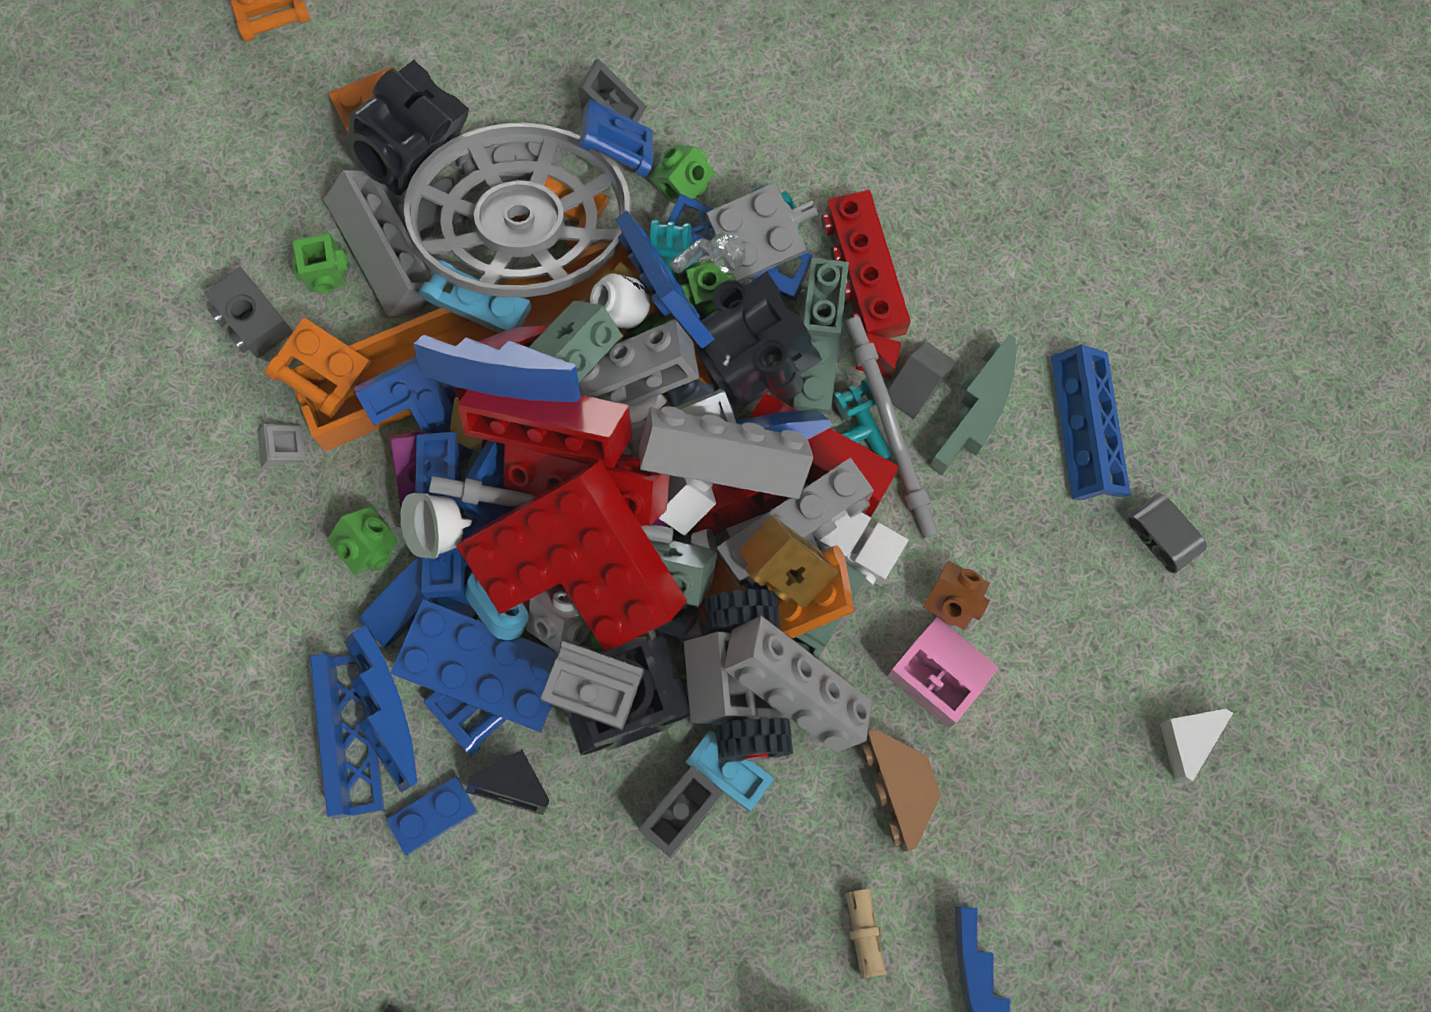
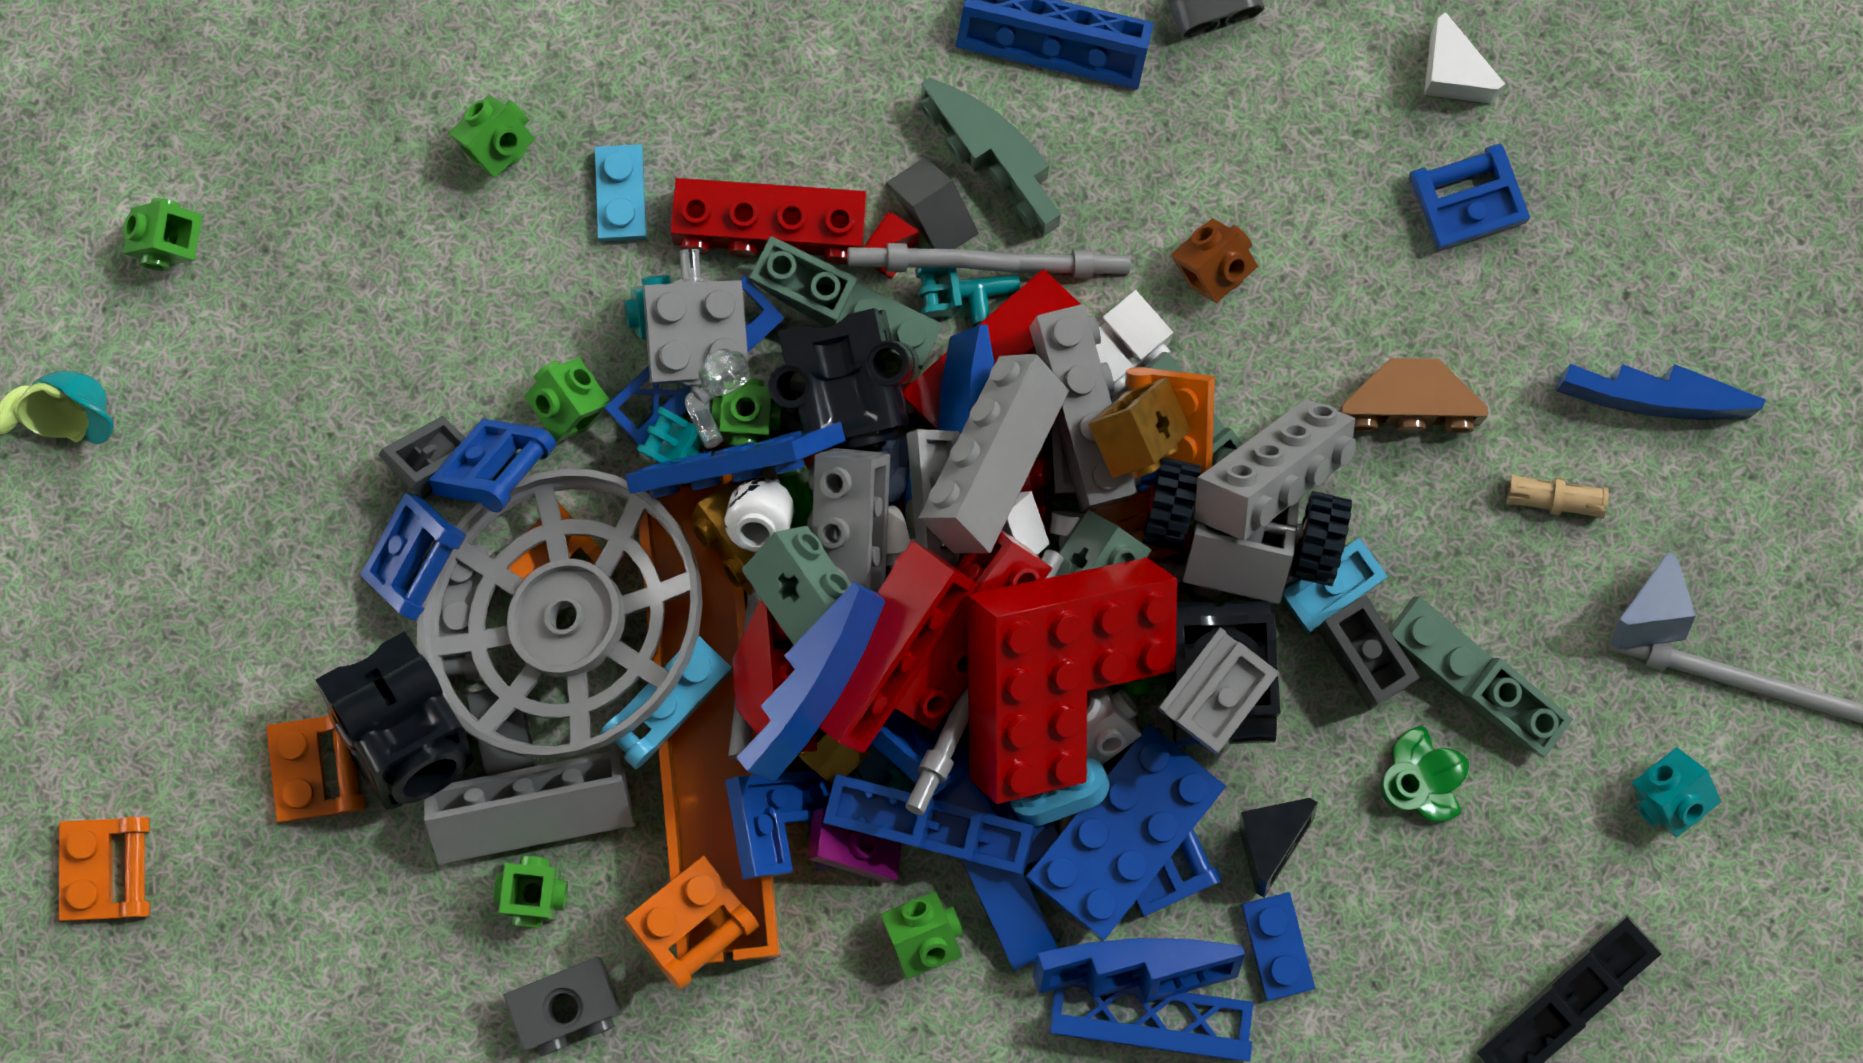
camera: 75 degrees left, 5 degrees up
(280, 444) = (753, 1012): light grey slope -> none
(431, 524) = (953, 832): white piece -> none
(534, 109) = (403, 548): none -> blue plate
(604, 897) = (1431, 773): none -> green plate
(691, 912) = (1479, 679): none -> sand green slope
(848, 165) = (620, 193): none -> medium azure plate
(856, 65) = (493, 134): none -> bright green brick
(943, 672) = (1298, 307): bright pink slope -> none
(1079, 793) = (1474, 210): none -> blue plate

